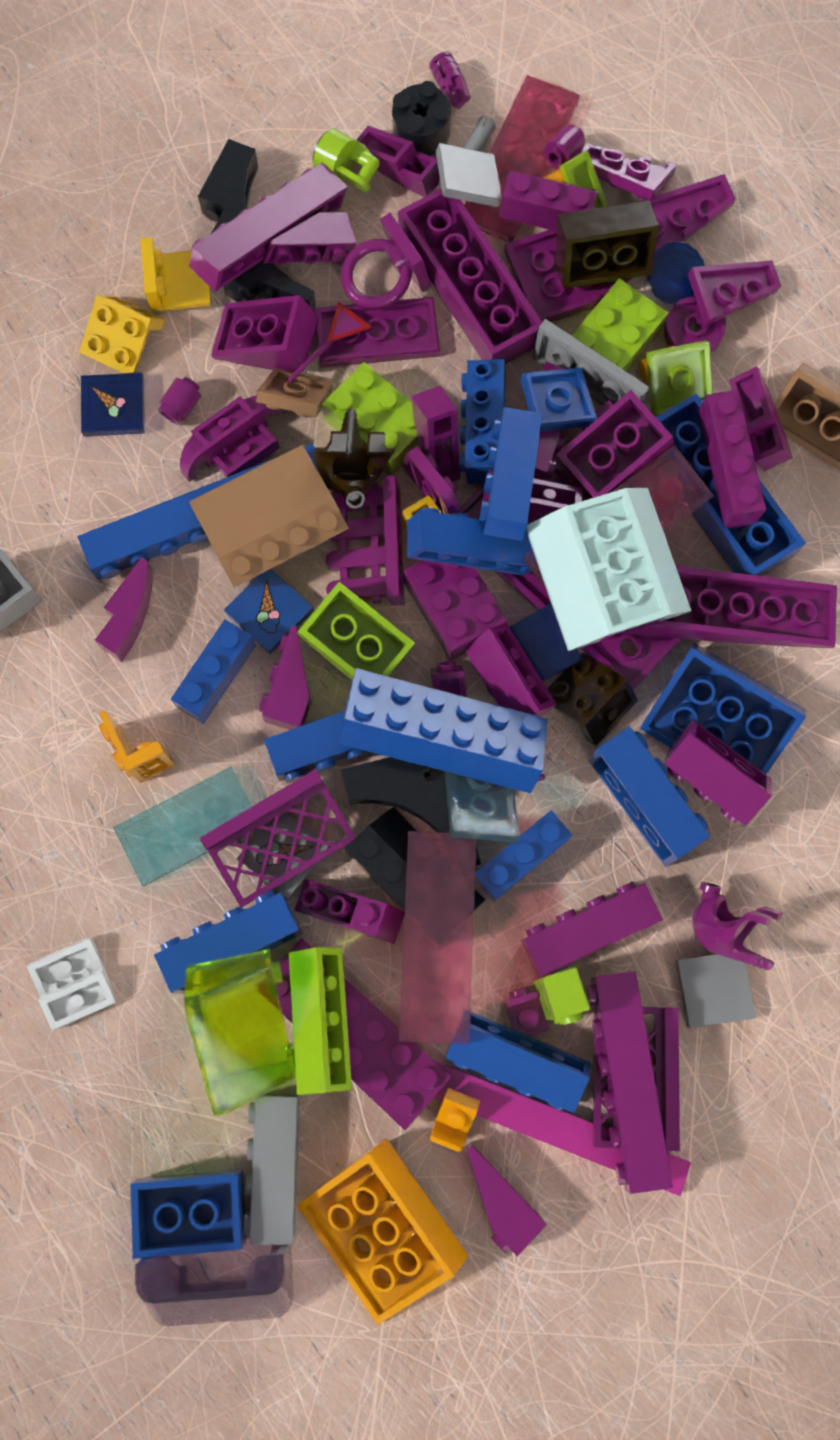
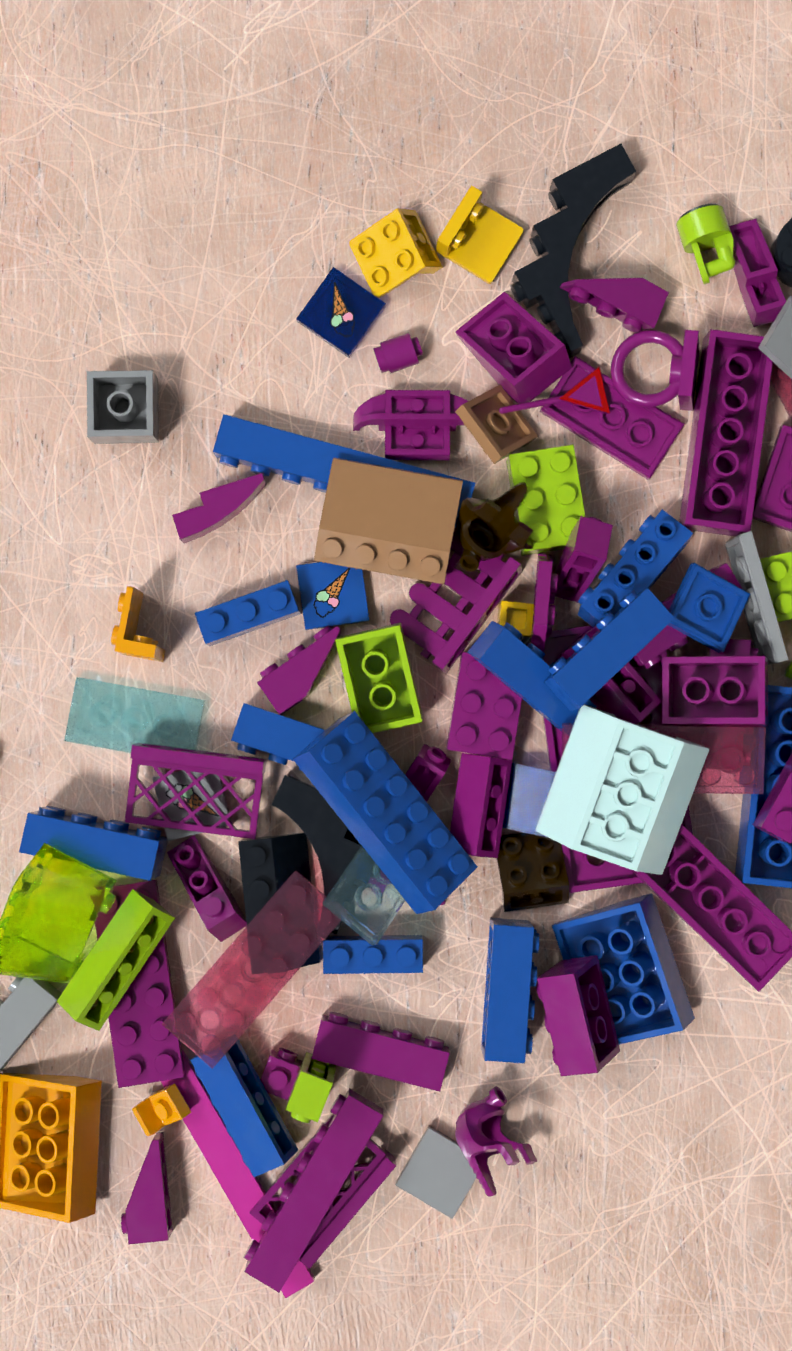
camera: 40 degrees right, 10 degrees up
(245, 239) = (594, 256): brick -> none

